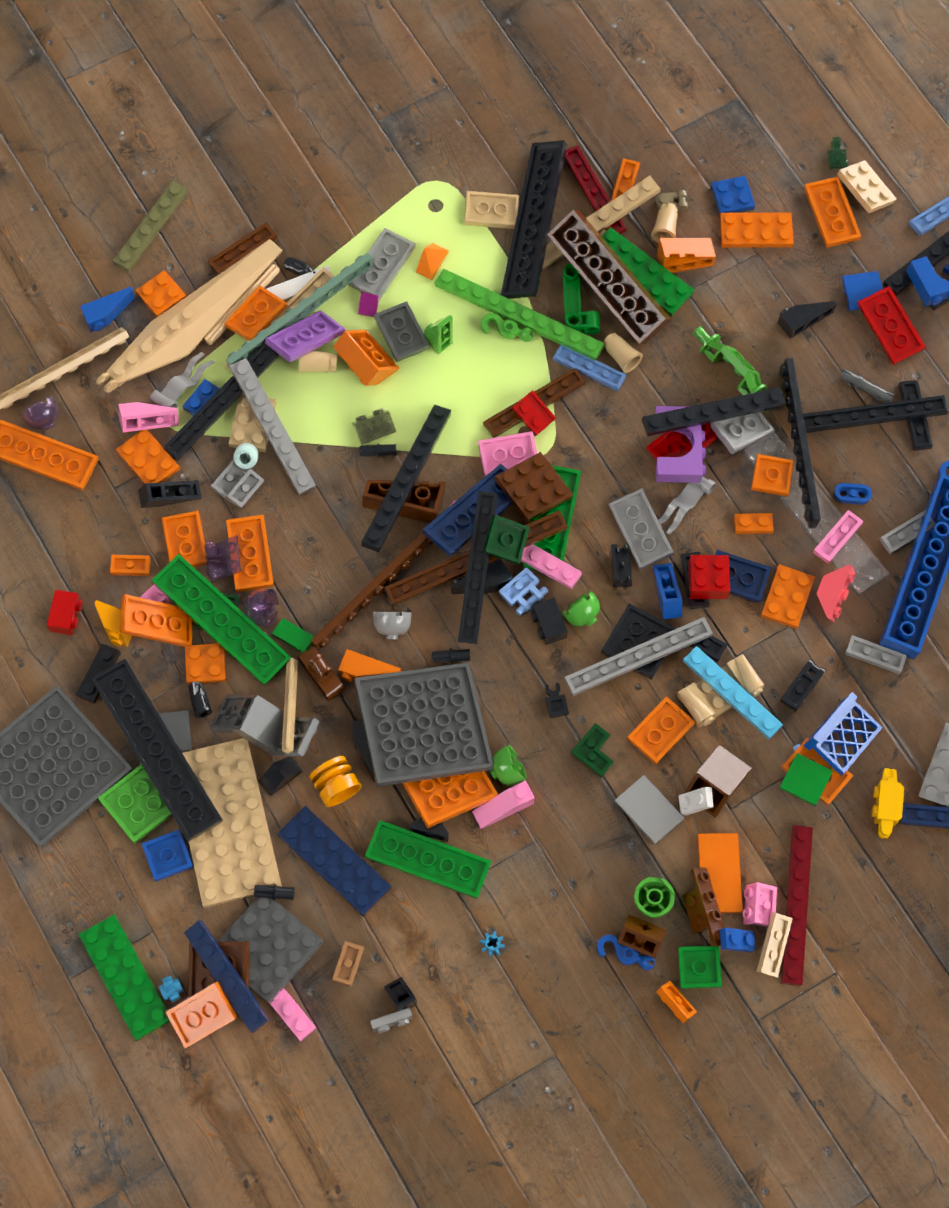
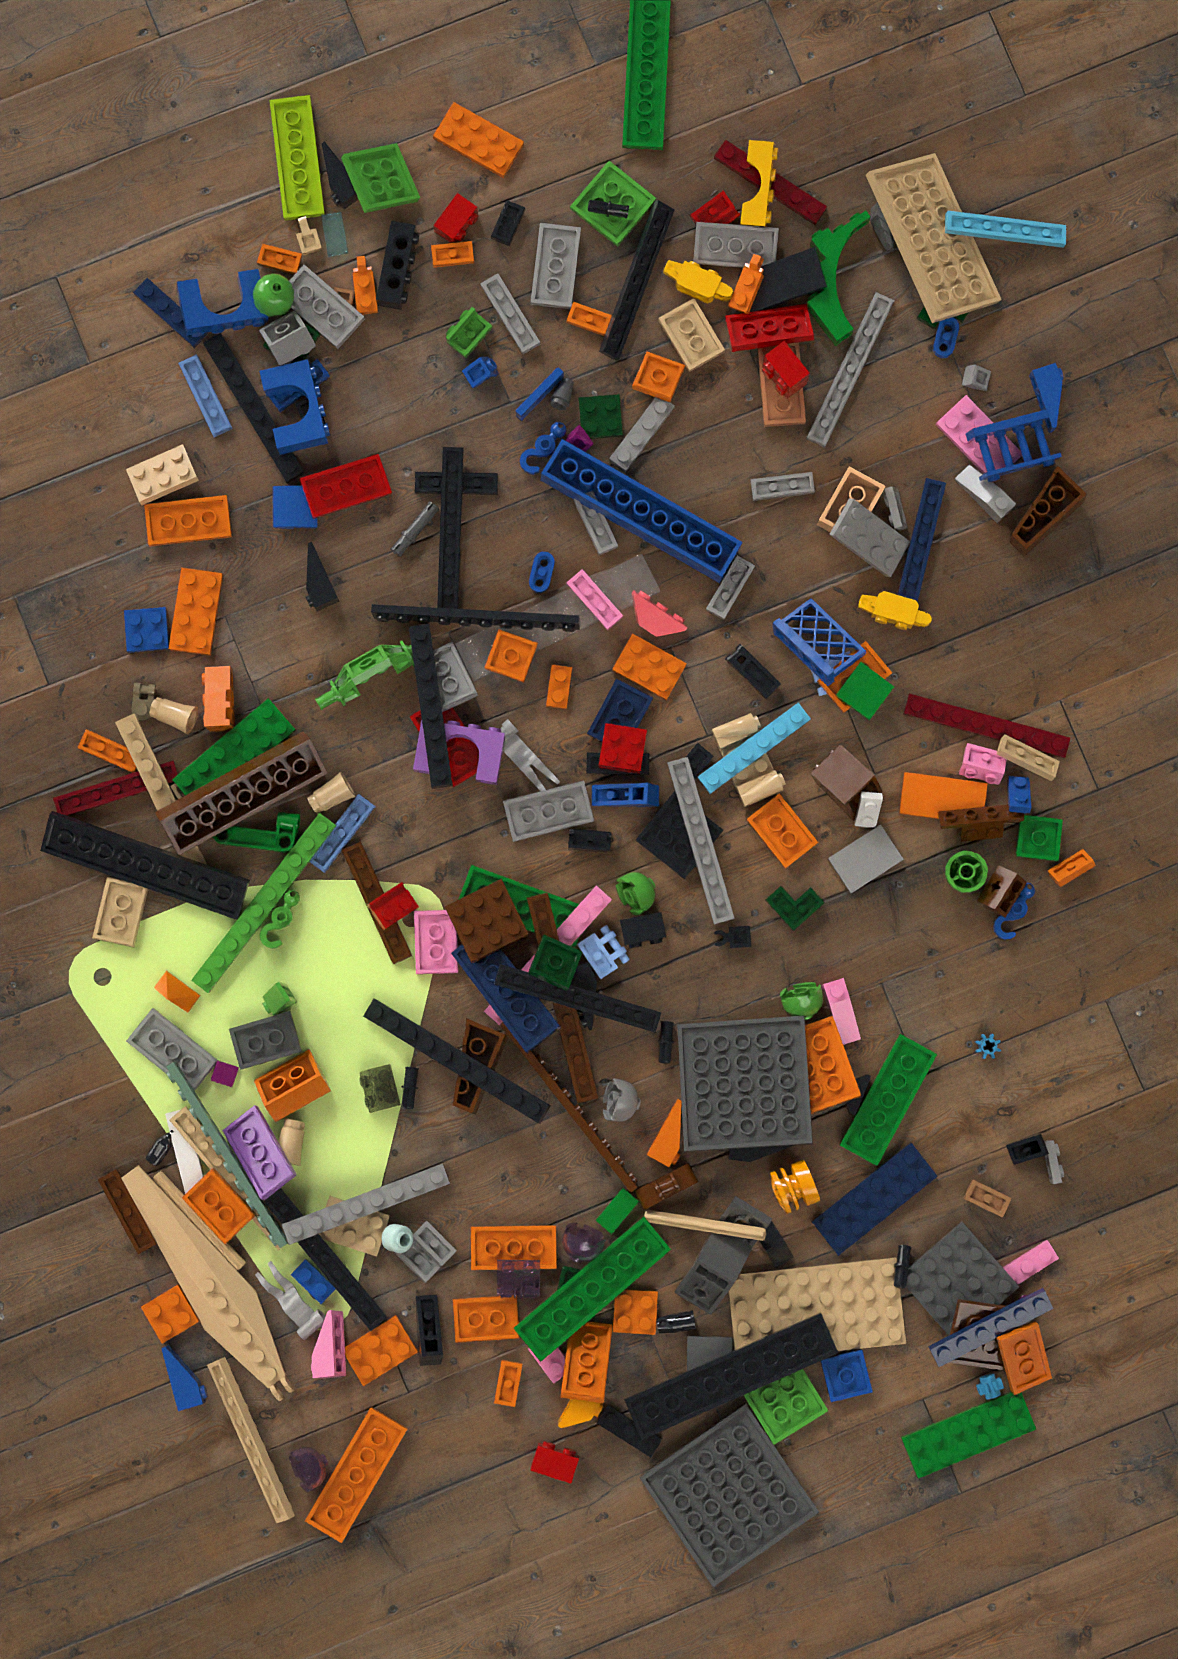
camera: 80 degrees left, 15 degrees up
(150, 226) = (77, 1316): olive plate -> none
(837, 157) = (115, 499): clear green plate -> none

